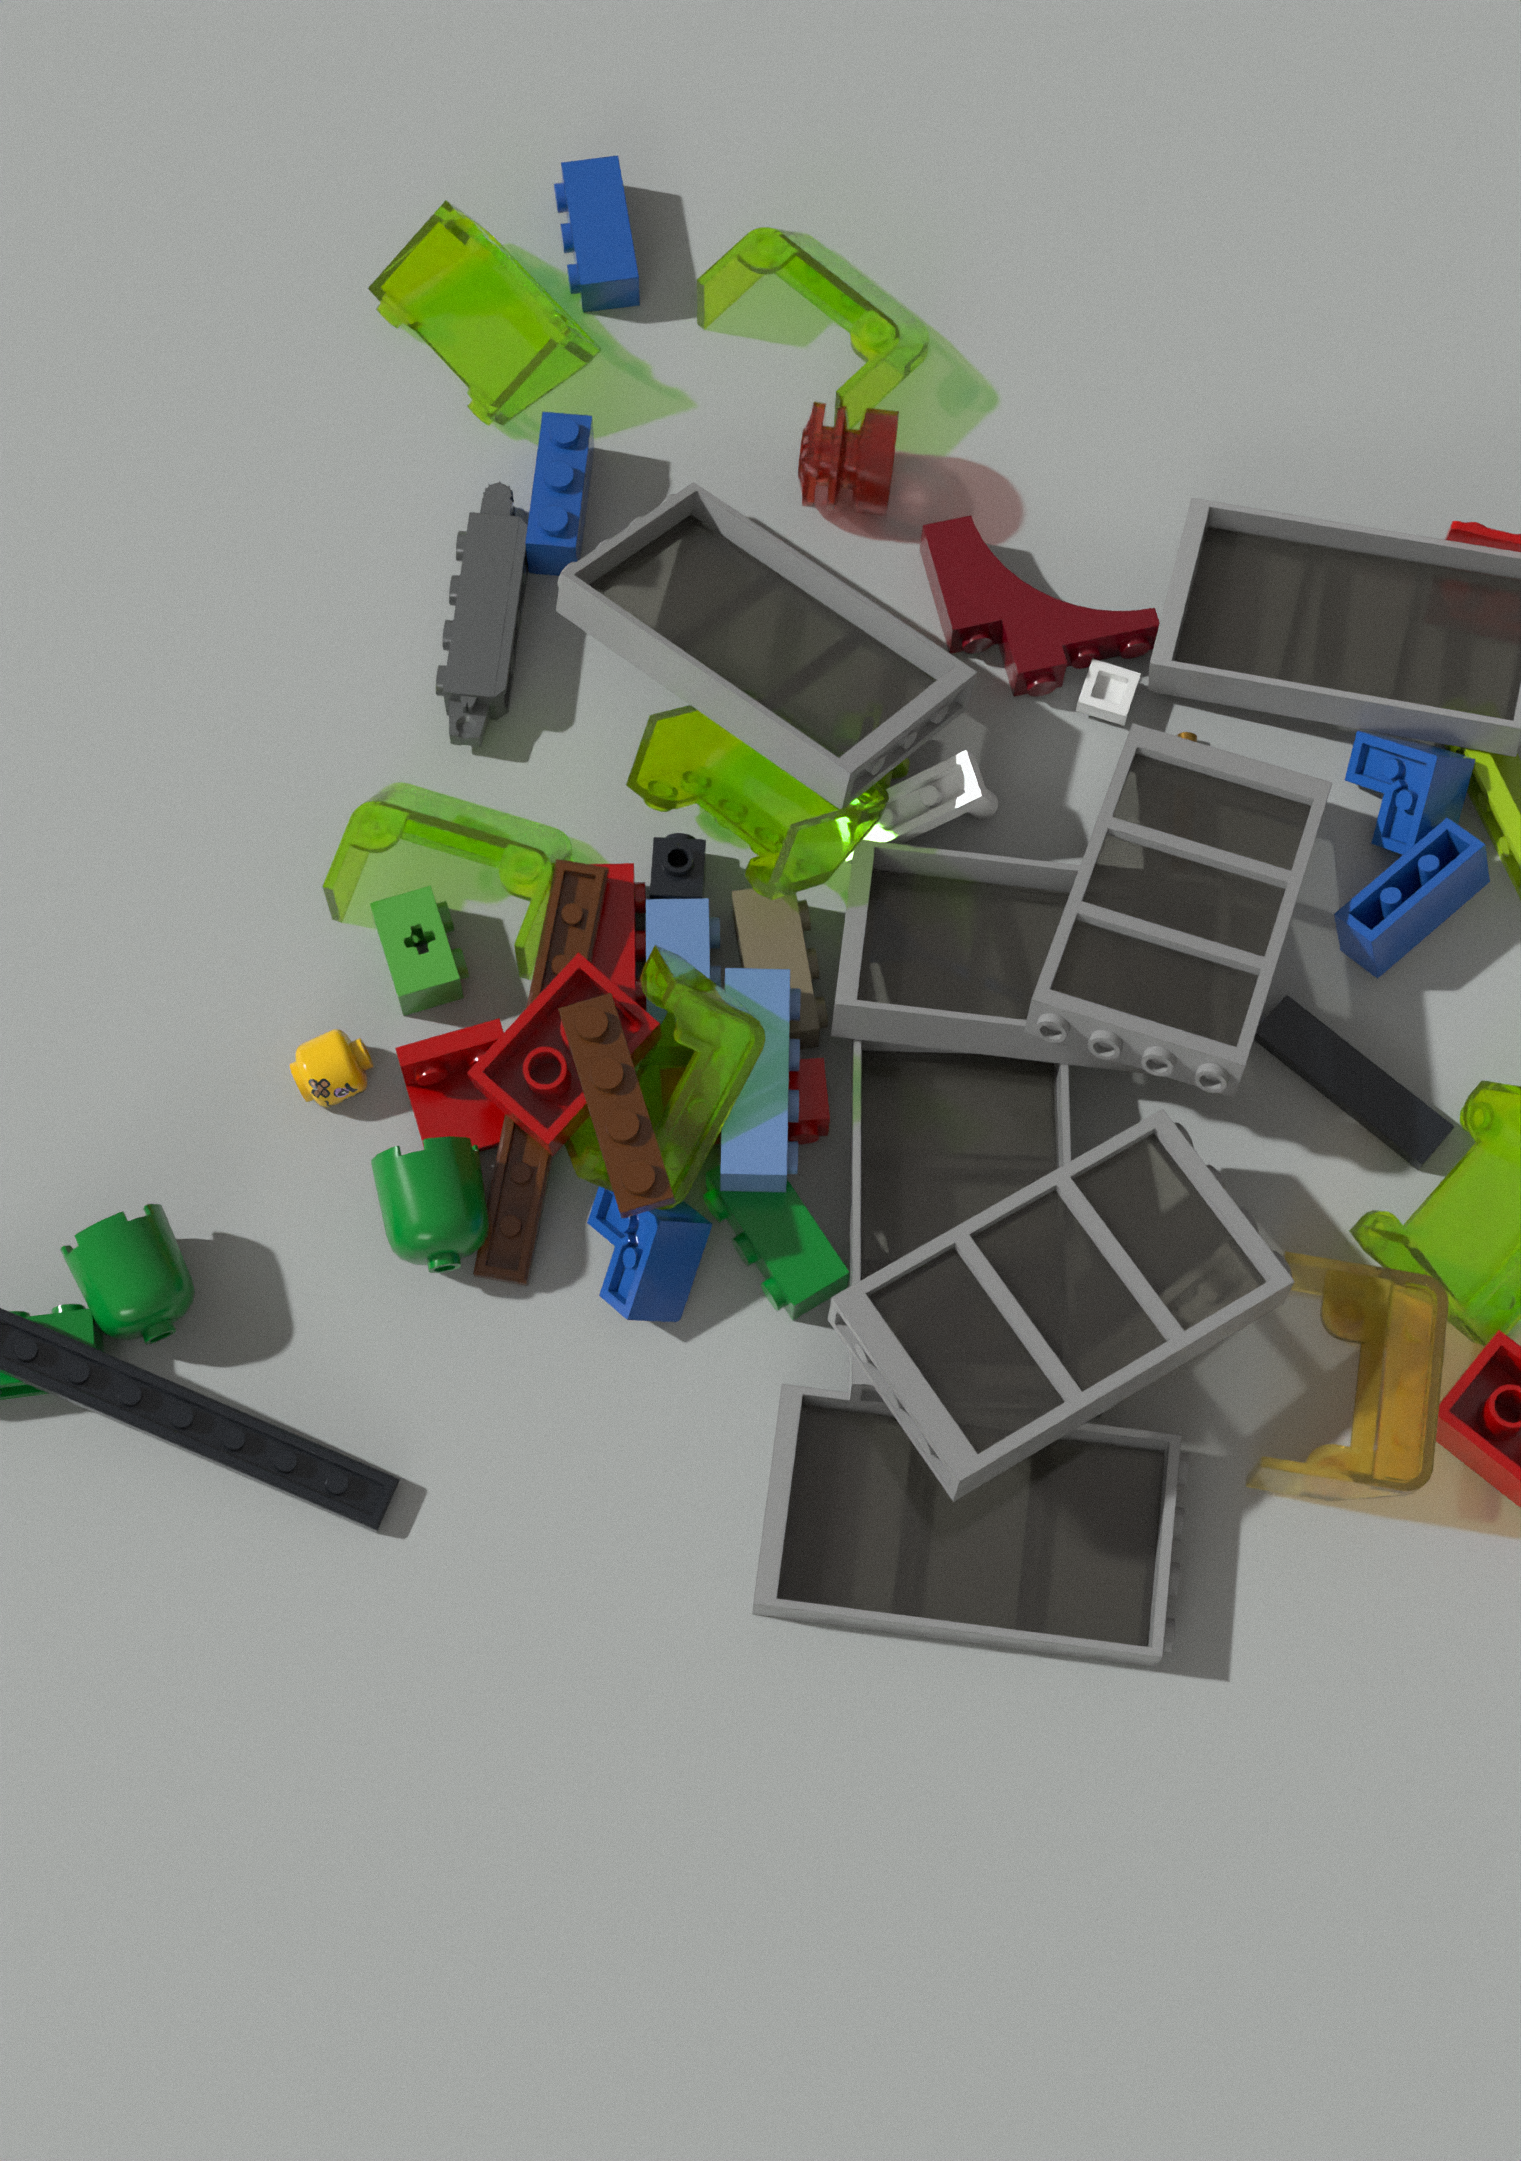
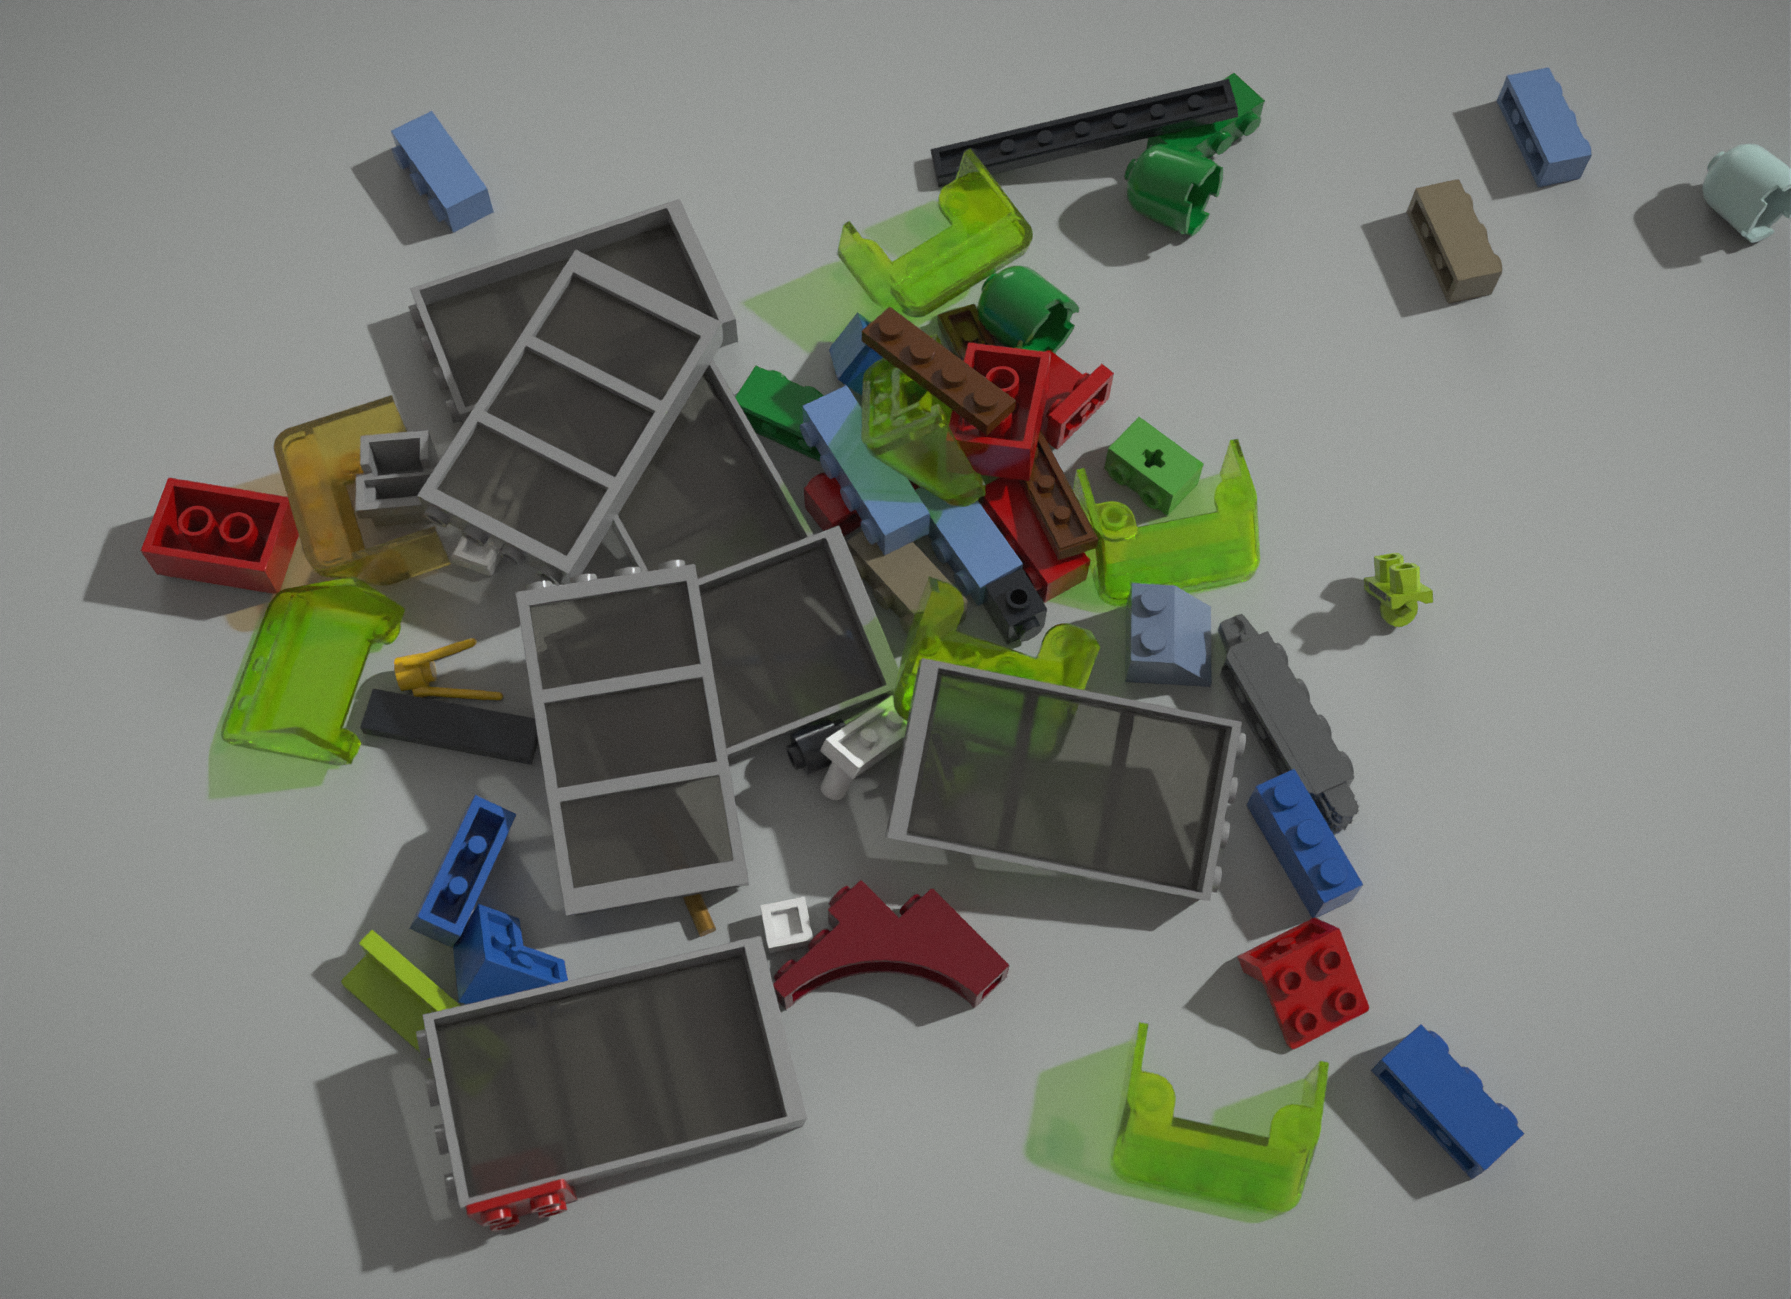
camera: 150 degrees right, 5 degrees down
(271, 670) = (1397, 588): none -> lime hips
(331, 1068) = (1152, 366): yellow head -> none
(473, 1328) = (982, 239): none -> clear neon green windscreen
(482, 315) = (1471, 973): clear neon green windscreen -> none
(543, 761) = (1167, 637): none -> sand blue slope
(646, 395) = (1307, 980): none -> red bracket
(849, 458) = (1109, 986): clear red wheel -> none
(977, 836) = (806, 746): none -> black brick
(1035, 1854) = (441, 172): none -> medium blue brick
(1288, 1389) = (393, 476): none -> light grey plate
(1363, 1154) = (417, 670): none -> yellow plant

